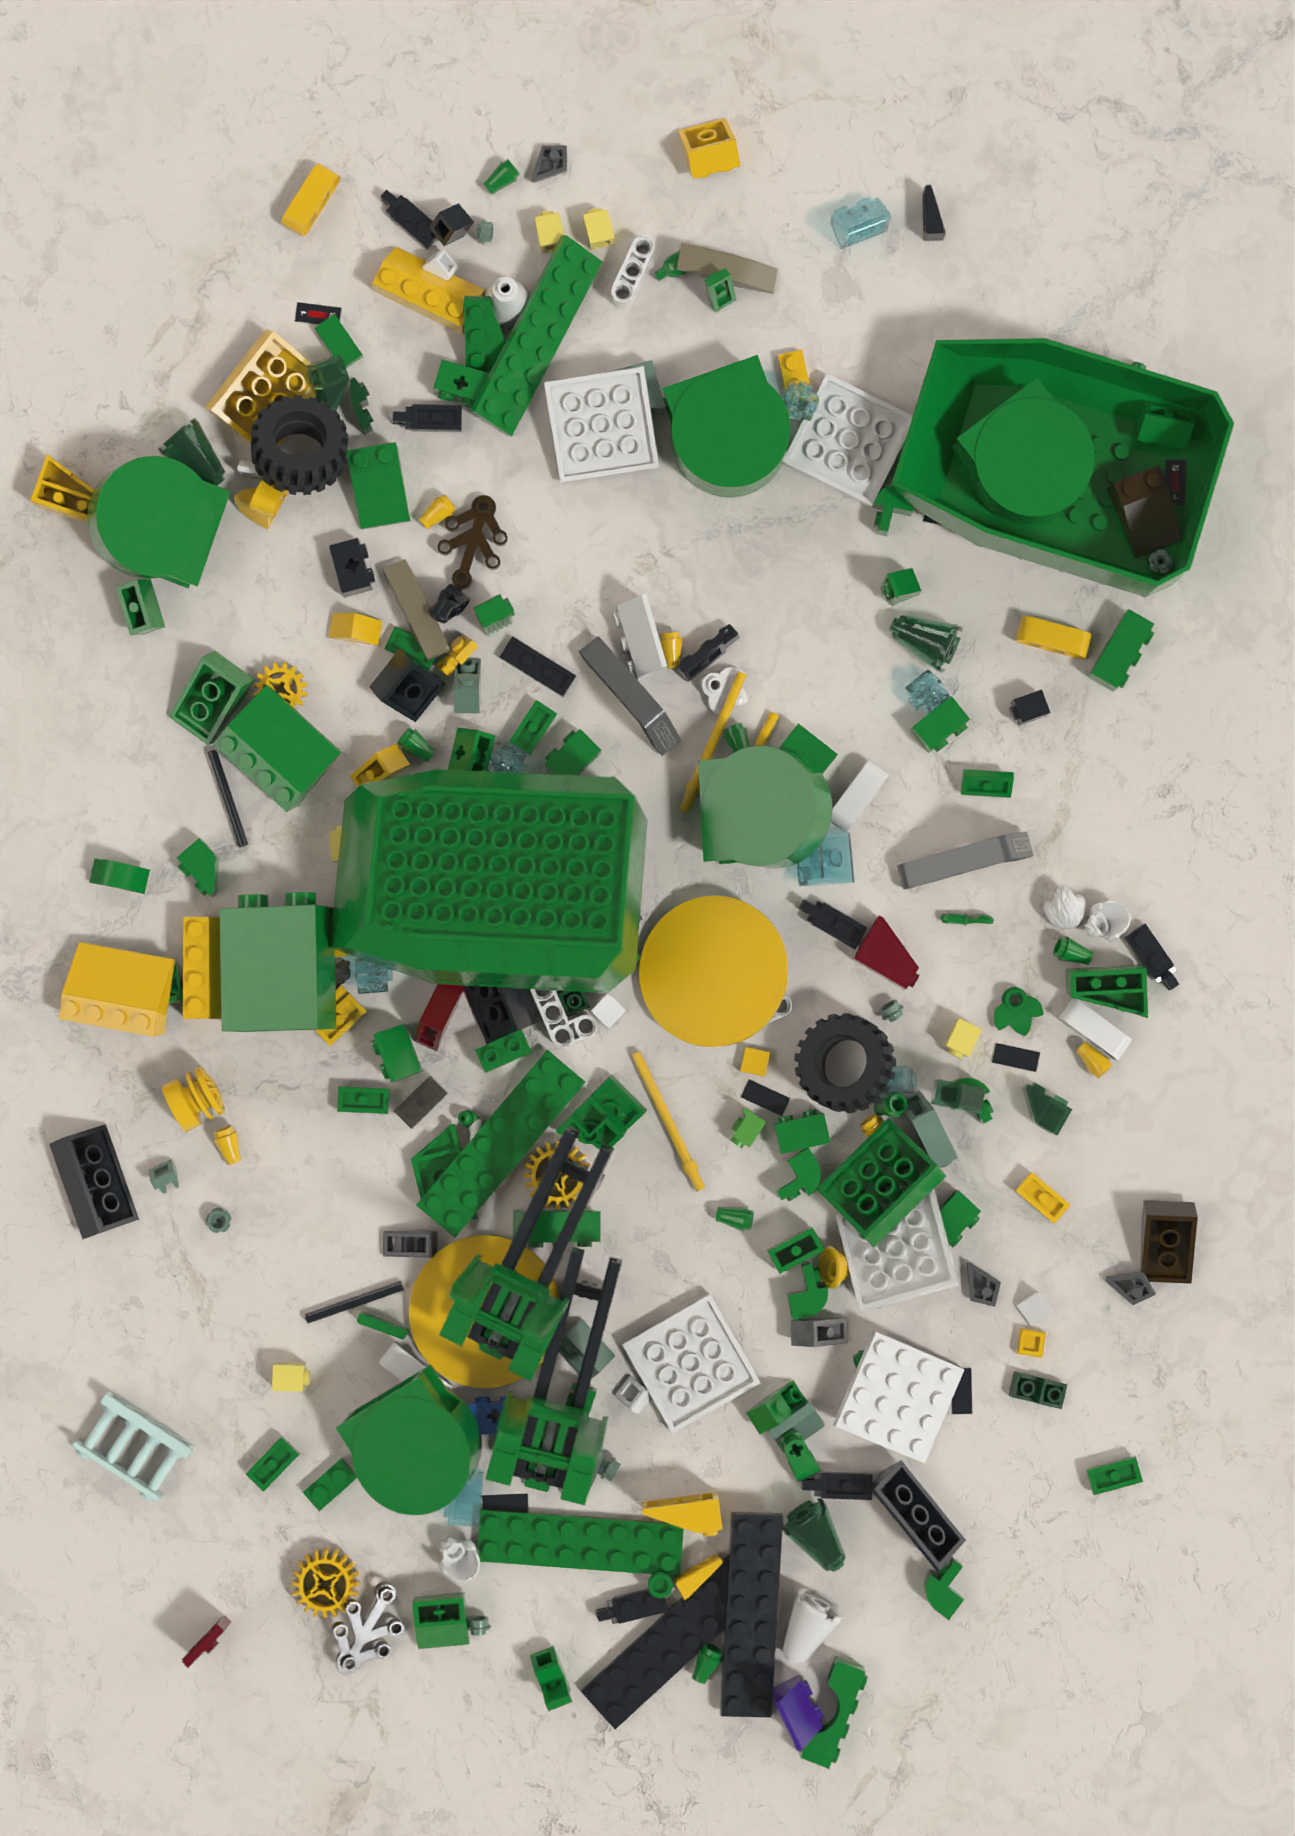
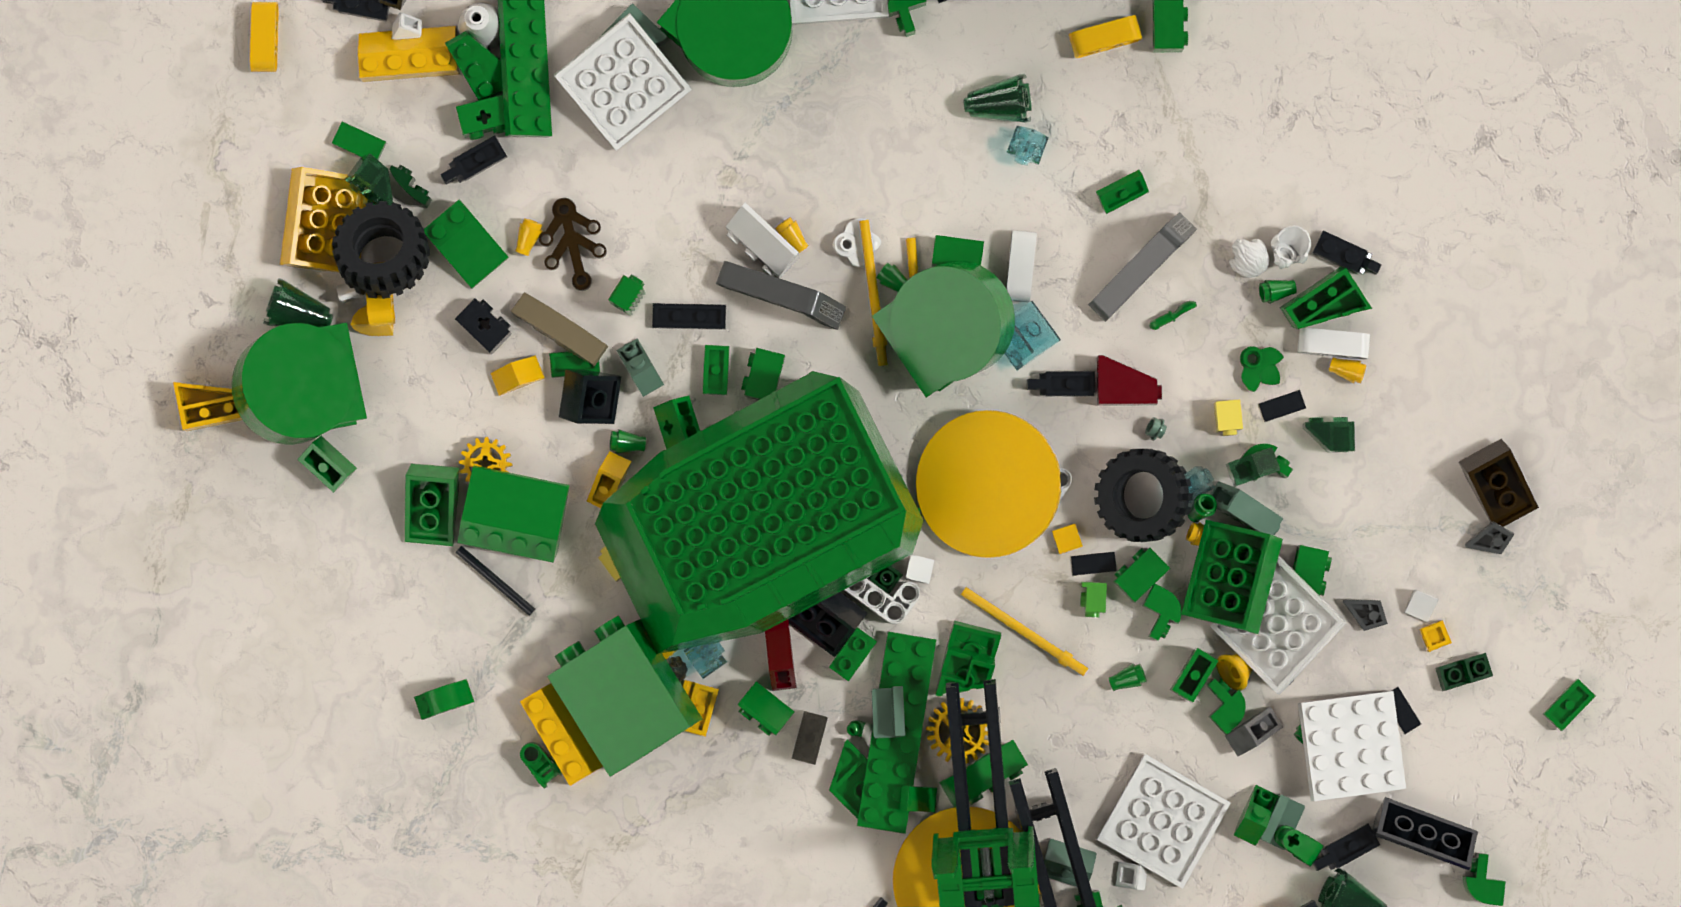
camera: 20 degrees left, 0 degrees up
(118, 989) = (500, 794): yellow slope -> none
(196, 1097) = (618, 847): yellow wheel -> none
(202, 865) = (508, 649): green slope -> none
(227, 1142) = (669, 869): yellow cone -> none
(315, 313) = (324, 130): black sticker -> none
(363, 1100) = (760, 765): green plate -> none
(431, 1244) = (888, 851): black slope -> none
(449, 604) = (584, 308): black piece -> none
(459, 651) = (617, 342): yellow plate -> none
(484, 1214) = (918, 799): none -> green tile
(503, 1121) = (888, 712): none -> sand green panel
(508, 759) = (712, 409): clear light blue brick -> none
(708, 653) = (825, 220): black hinge -> none
(900, 586) = (952, 69): green slope -> none
(940, 725) = (1054, 166): green brick -> none
(1029, 707) = (1120, 107): black brick -> none
(1042, 1197) = (1373, 509): yellow plate -> none

